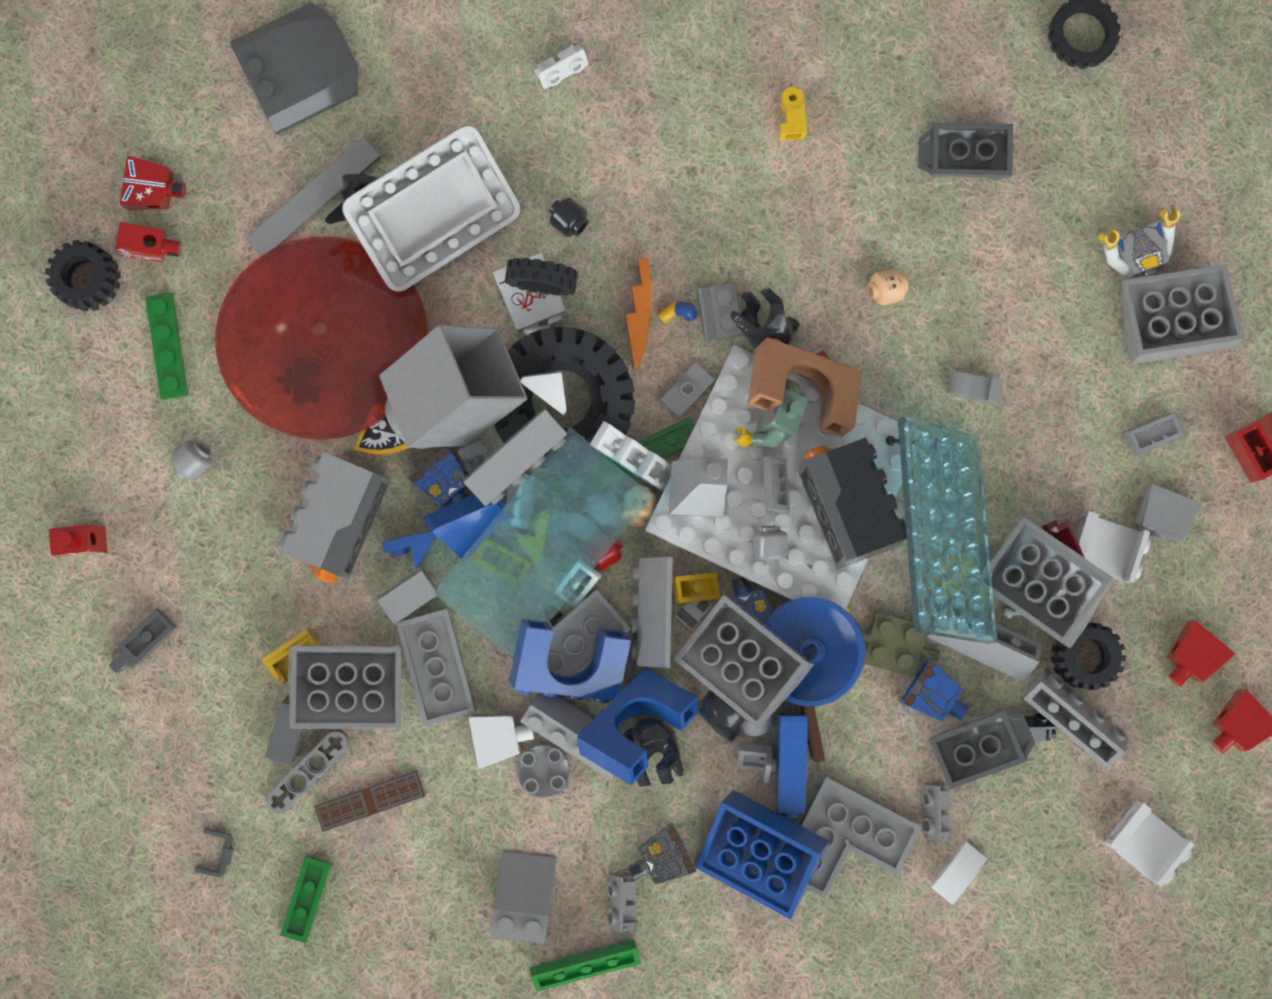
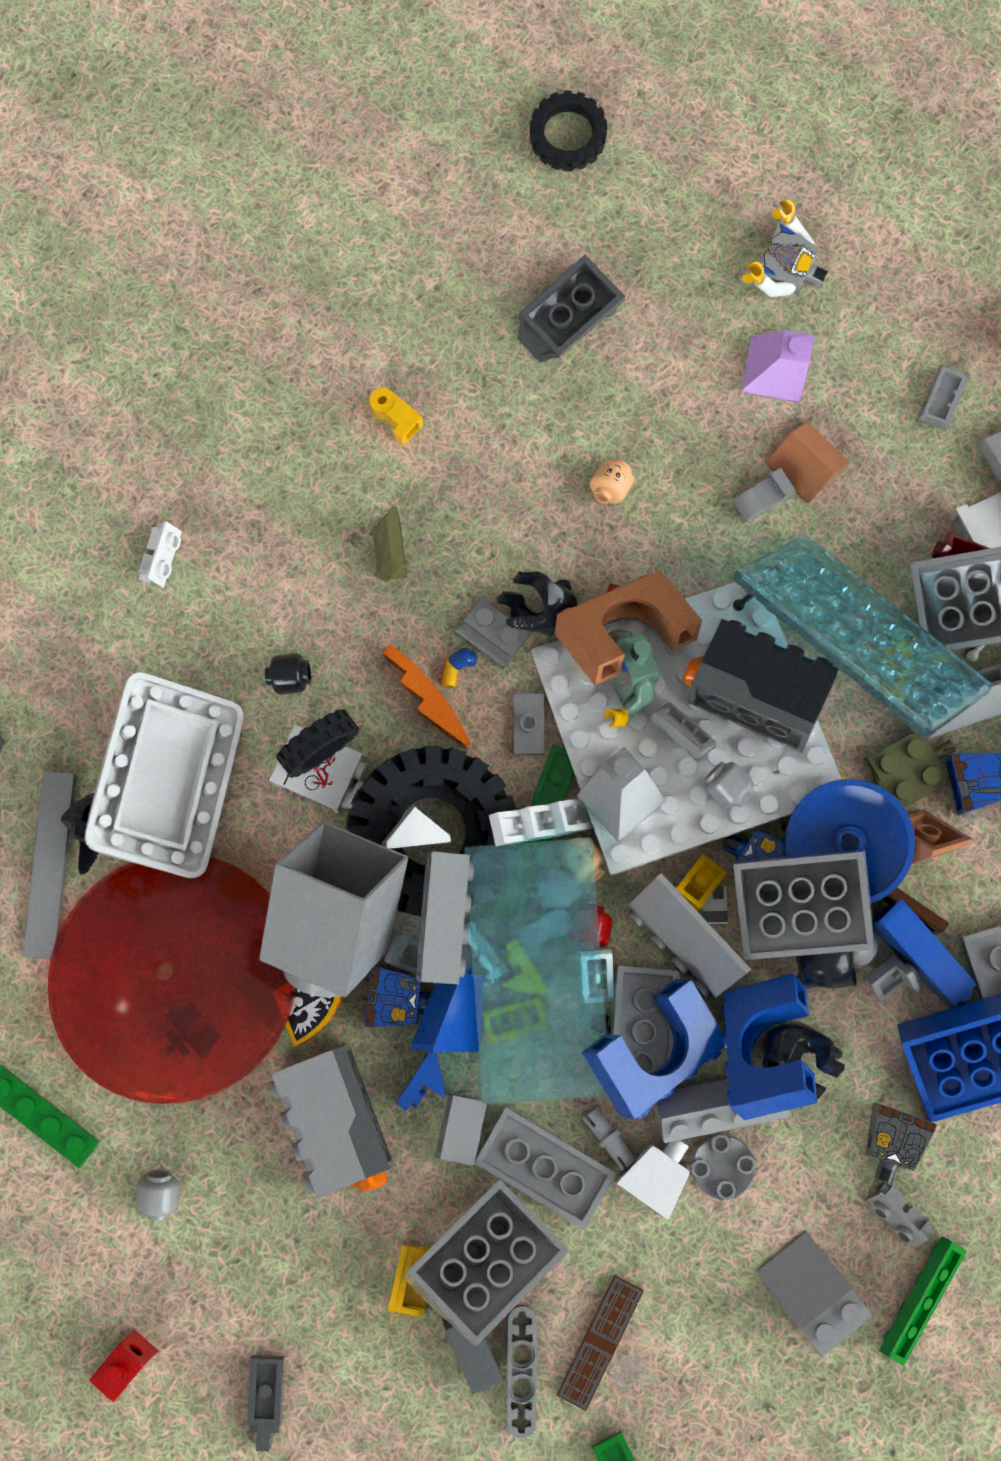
camera: 40 degrees left, 5 degrees down
(491, 688) = (609, 1139): none -> light grey pin
(708, 197) = (389, 547): none -> olive slope
(868, 698) = (934, 836): none -> nougat slope
(1026, 391) = (807, 461): none -> nougat slope
(1068, 312) = (778, 365): none -> lavender slope
(1180, 314) = (869, 282): light grey slope -> none

